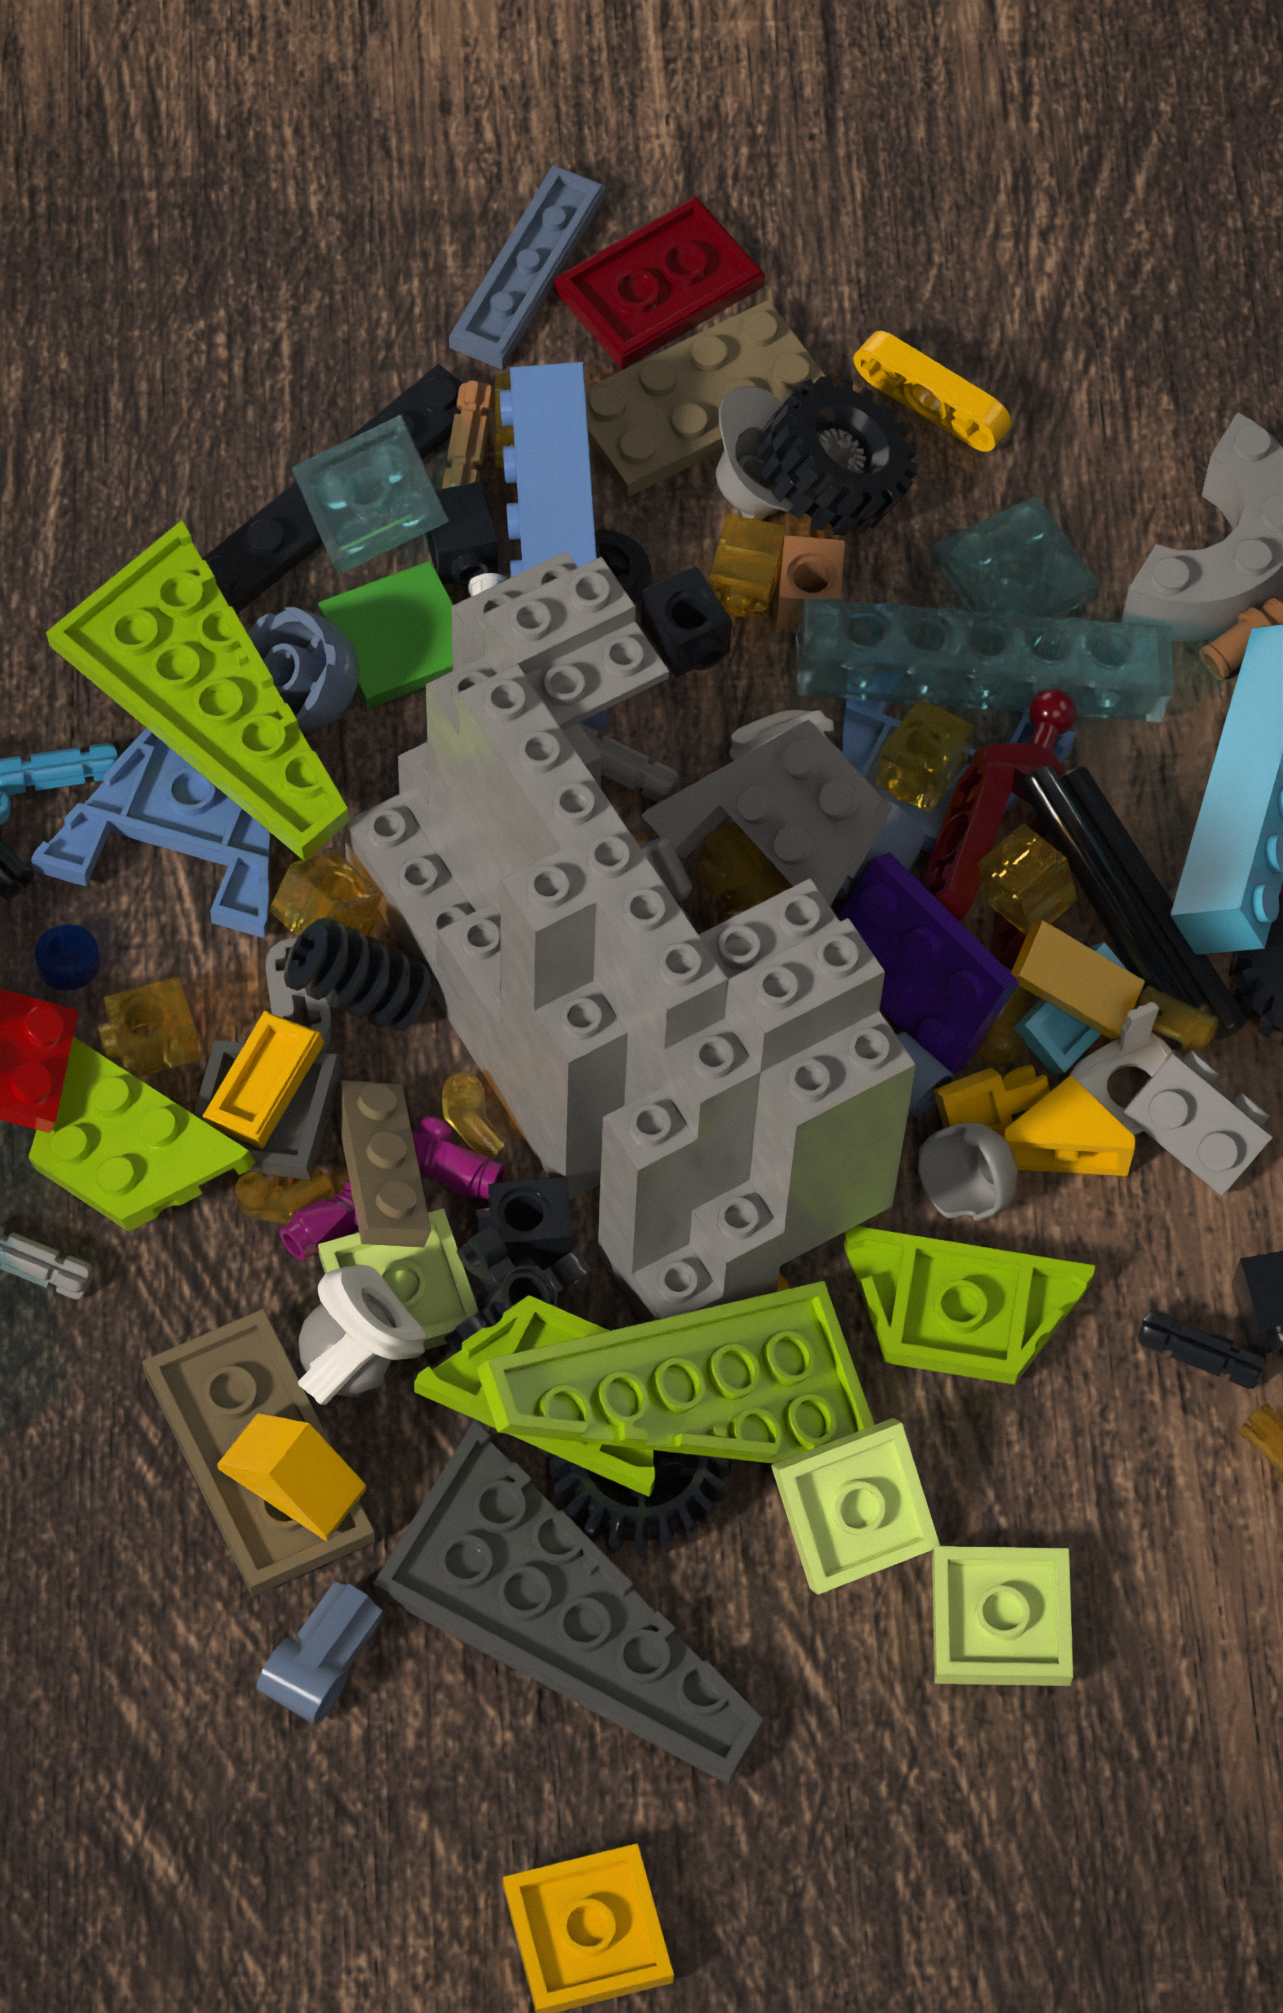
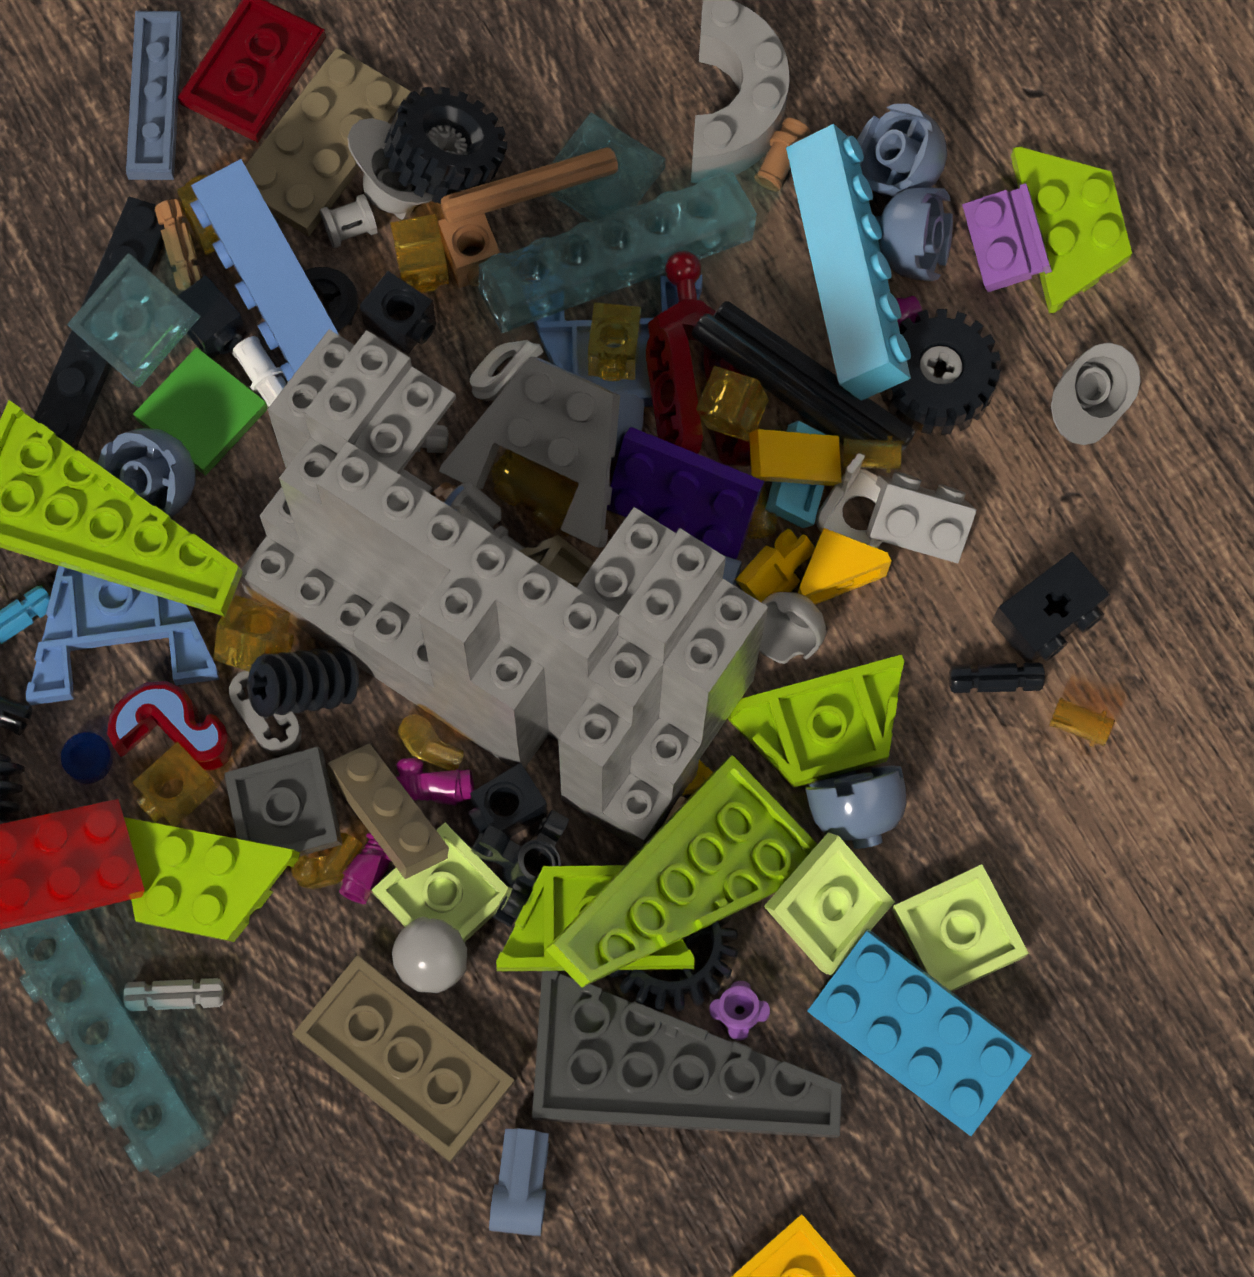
camera: 25 degrees left, 10 degrees up
(190, 941) = (176, 715): none -> dark red animal
(263, 1079) = (275, 789): yellow tile -> none
(294, 1472) = (439, 1067): yellow slope -> none
(365, 1334) = (444, 948): white piece -> none
(680, 1566) = (739, 995): none -> medium lavender plate
(681, 496) = (348, 221): none -> light grey bush
(891, 1706) = (920, 1032): none -> dark azure plate
(915, 540) = (529, 185): none -> medium nougat axle
(932, 391) = (483, 66): yellow beam -> none
(952, 1411) = (859, 804): none -> sand blue cylinder

